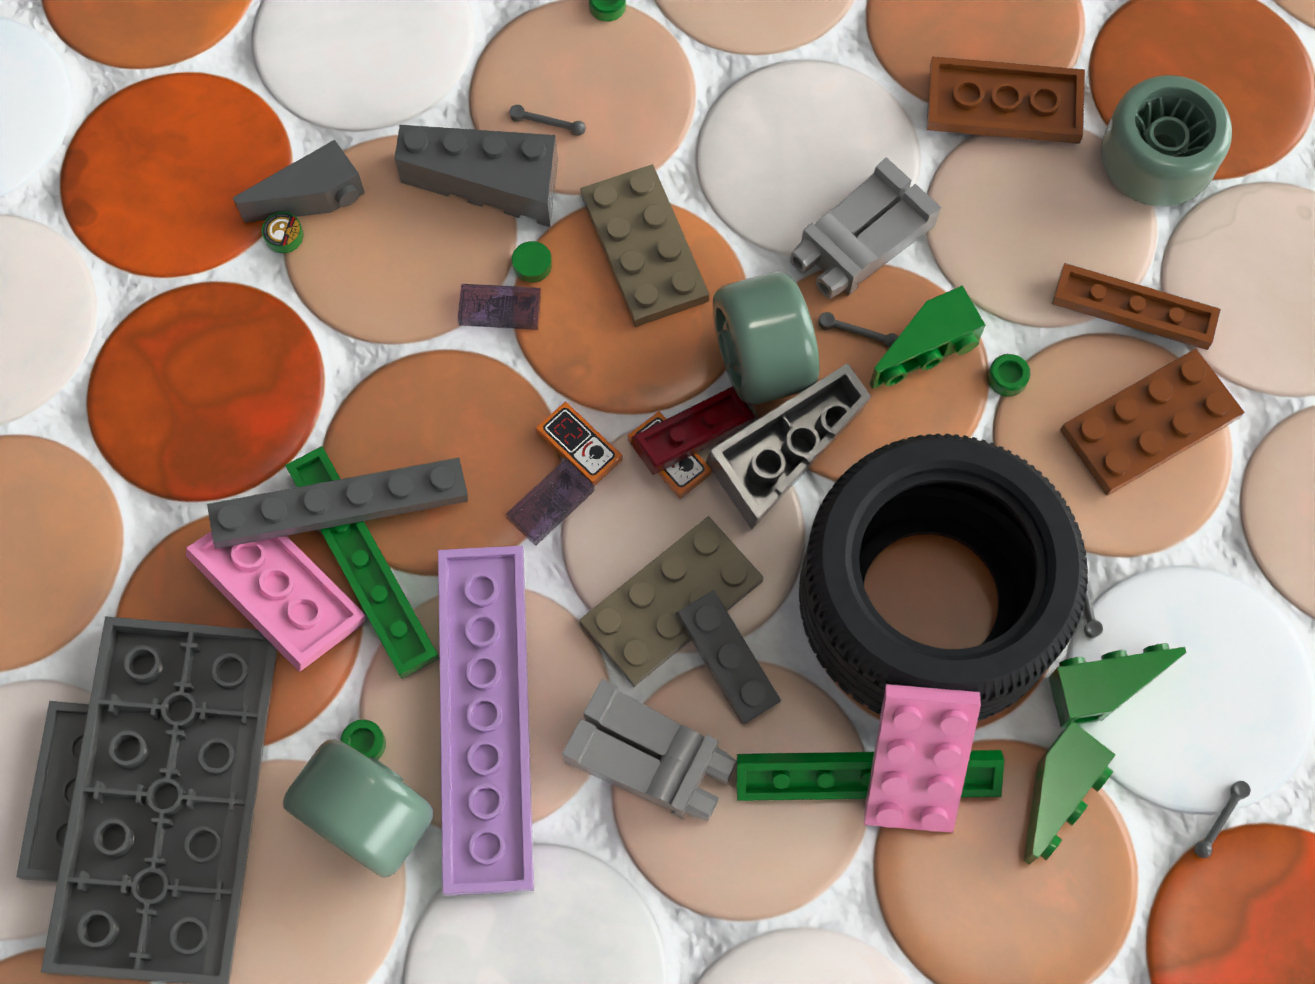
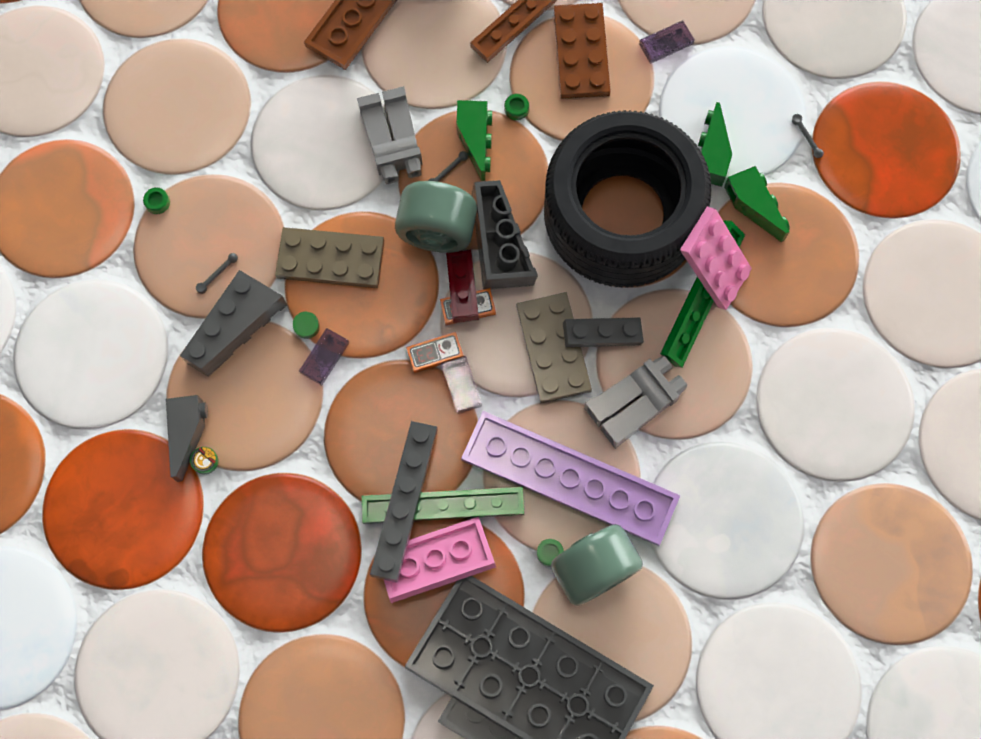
camera: 60 degrees left, 5 degrees up
(1243, 534) = (666, 41): none -> clear purple tile

